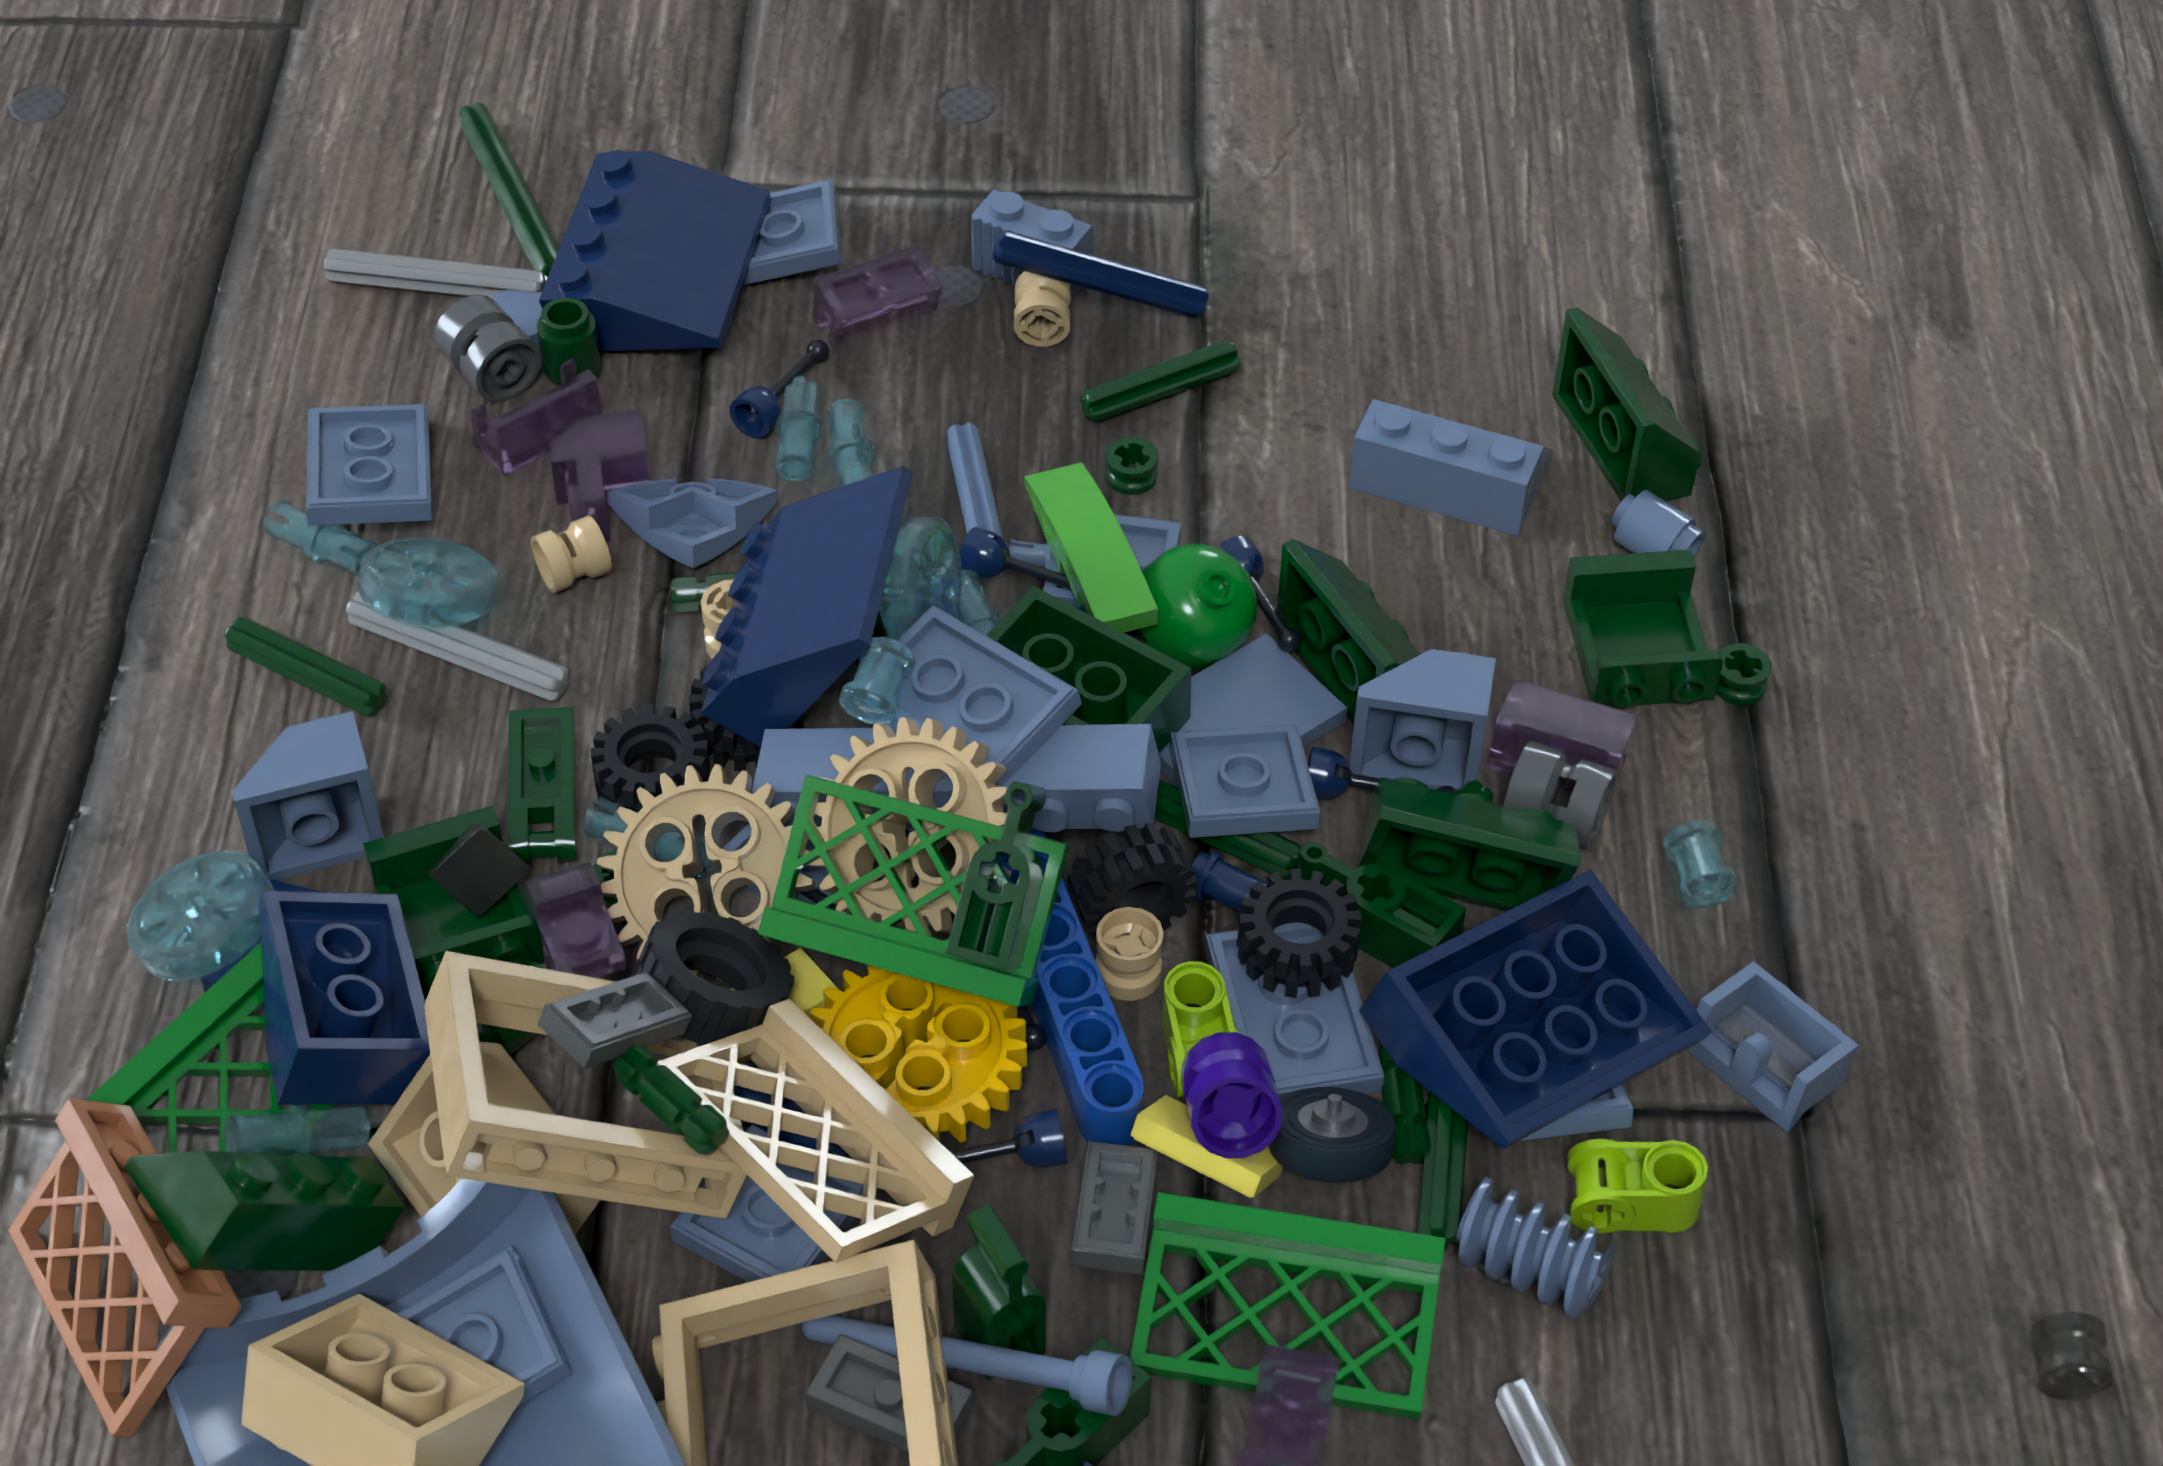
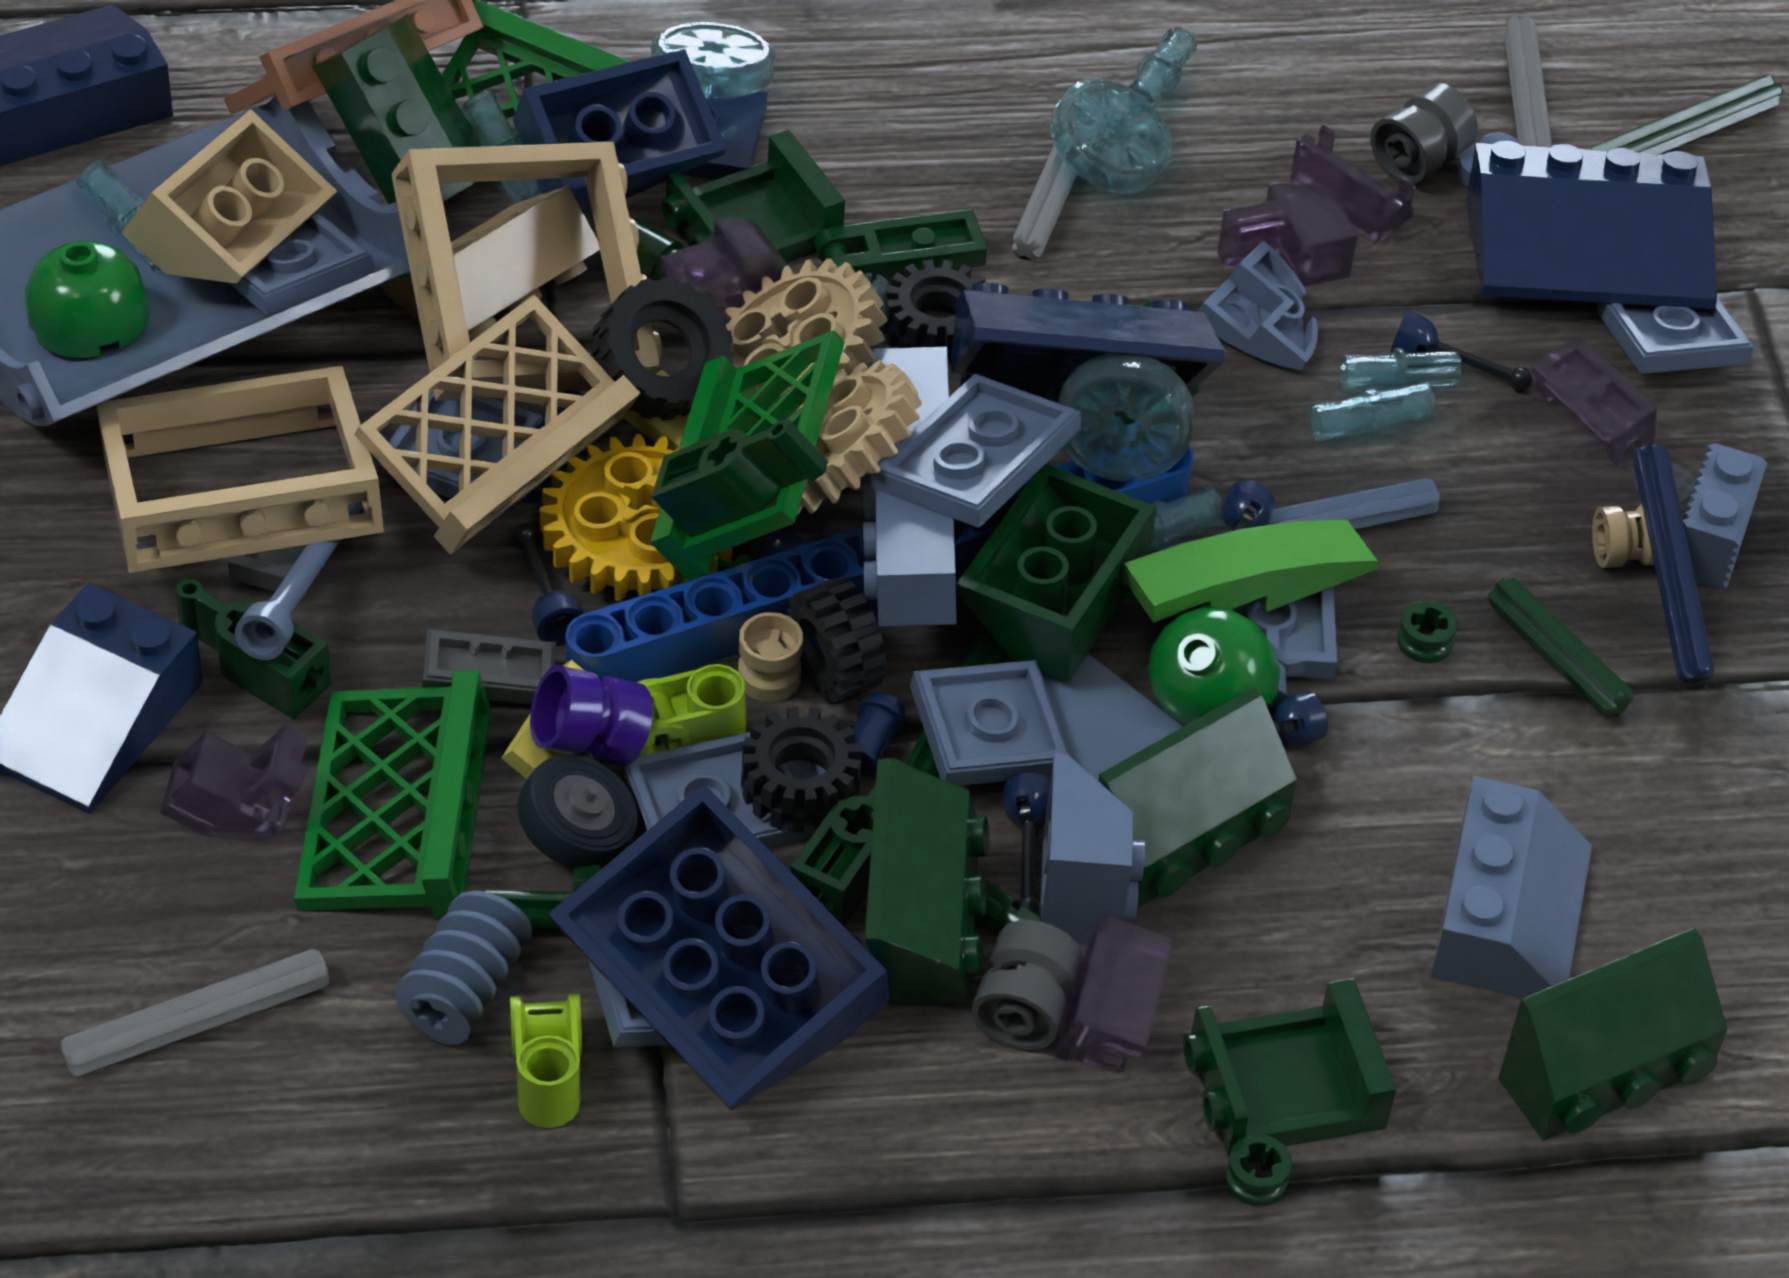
camera: 80 degrees right, 0 degrees up
(306, 666) = (1010, 88): dark green axle -> none
(309, 799) = (832, 93): sand blue slope -> none
(368, 464) = (1253, 82): sand blue tile -> none
(478, 869) = (783, 206): pearl dark grey slope -> none
(567, 333) = (1444, 182): dark green brick -> none
(571, 554) = (1182, 231): tan wheel -> none
(613, 1018) = (568, 259): dark grey plate -> none
(671, 1099) = (491, 303): dark green axle -> none
(877, 681) = (962, 371): clear light blue bush -> none
(995, 1292) = (360, 568): dark green piece -> none
(1654, 526) = (1448, 1086): sand blue brick -> none
(1700, 864) = (965, 1116): clear light blue bush -> none
(1771, 1045) = (735, 1170): sand blue window -> none

